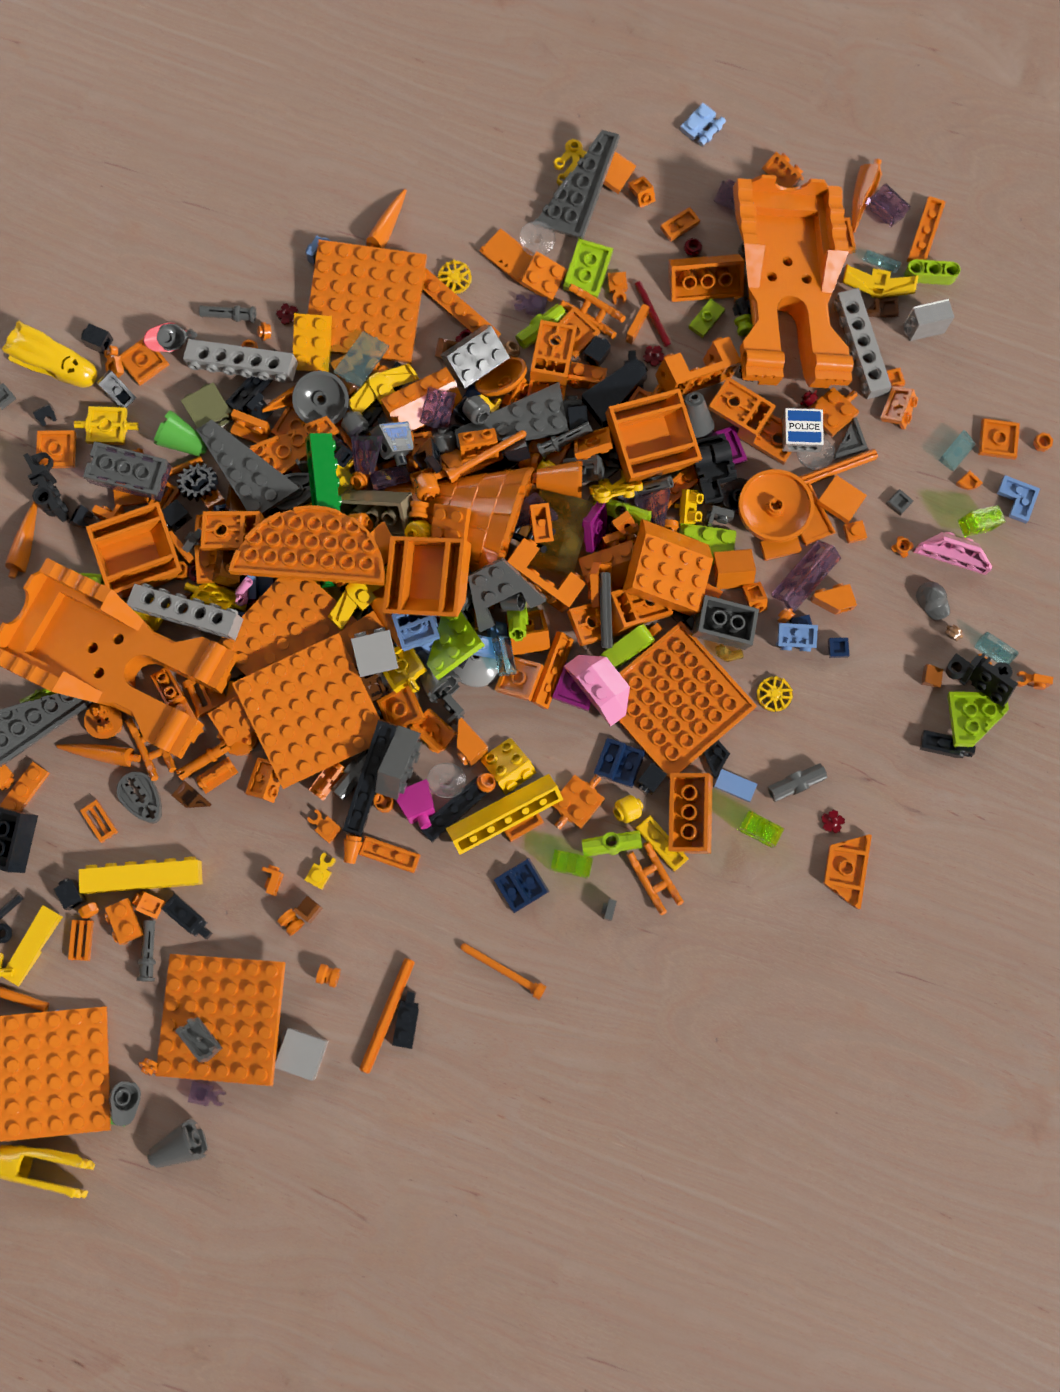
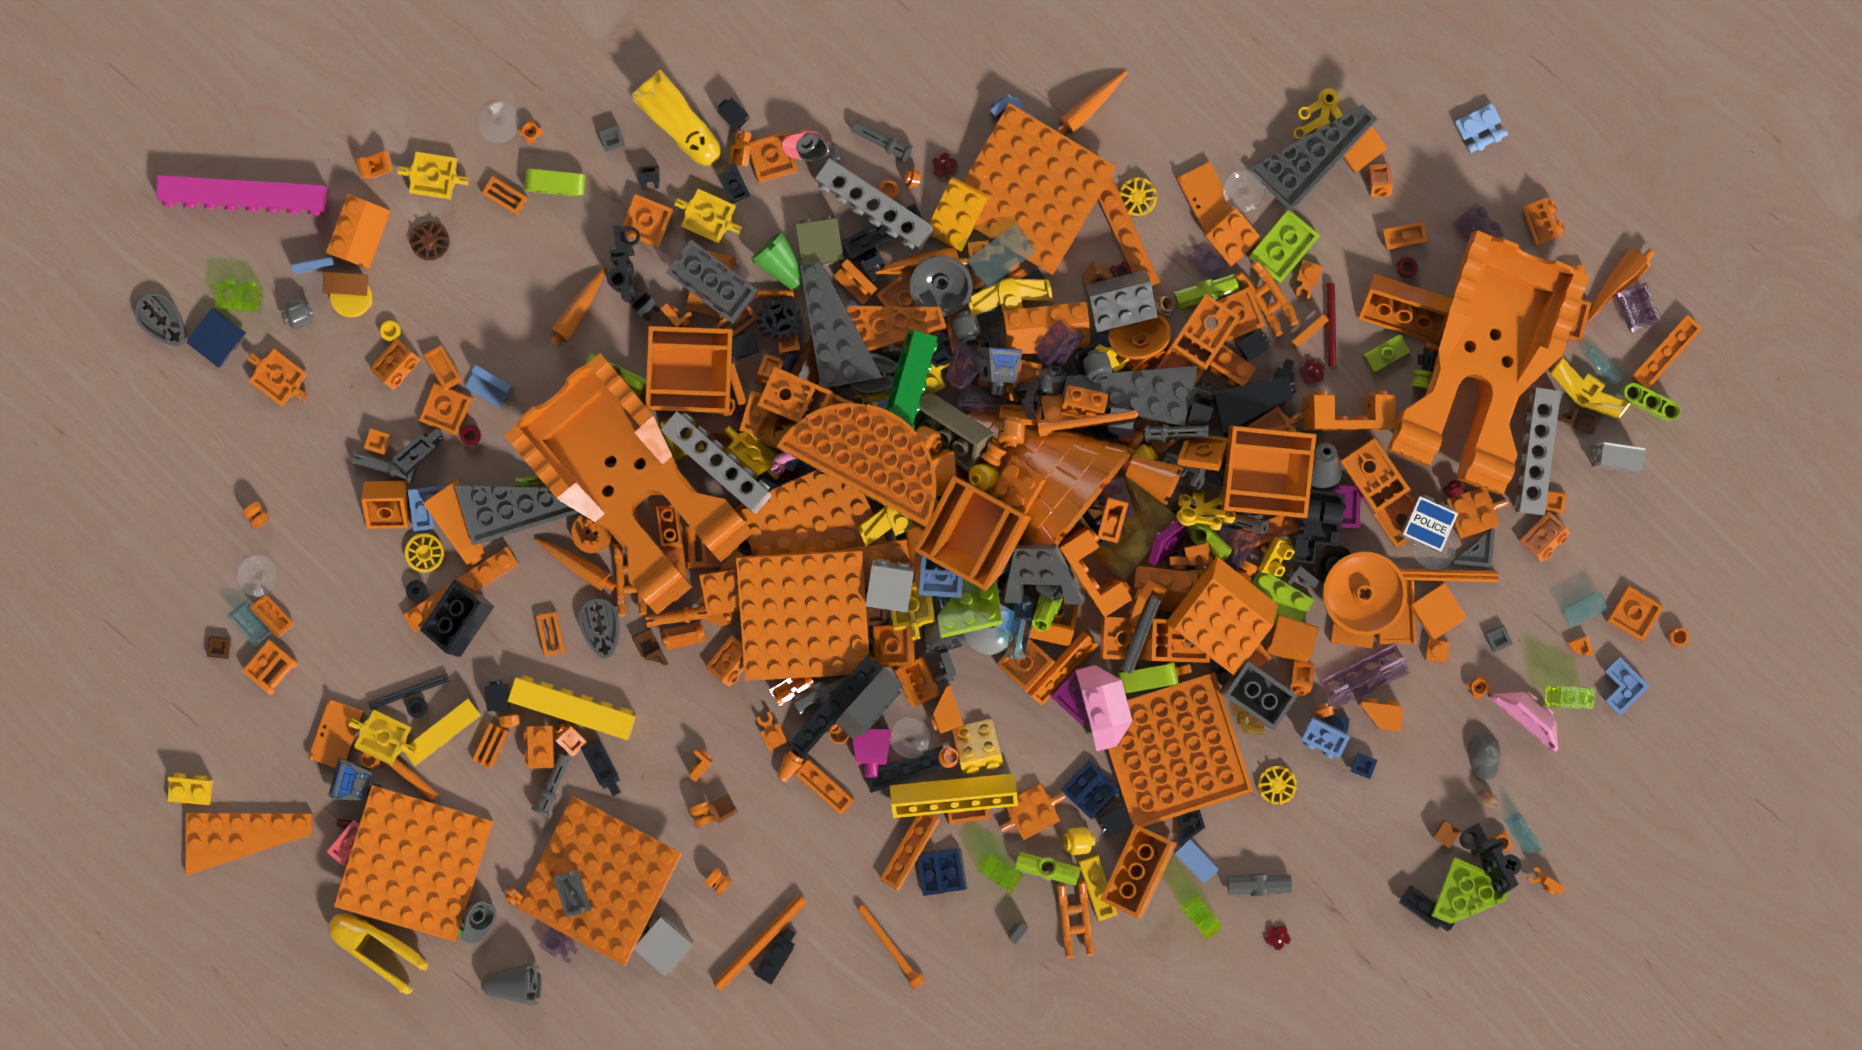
camera: 30 degrees right, 10 degrees up
(191, 540) = (751, 383): dark grey plate -> none
(319, 874) = (747, 777): yellow plate -> none
(359, 481) = (946, 390): orange plate -> none
(485, 878) = (909, 850): none -> orange plate
(847, 869) = (1271, 989): orange wing -> none

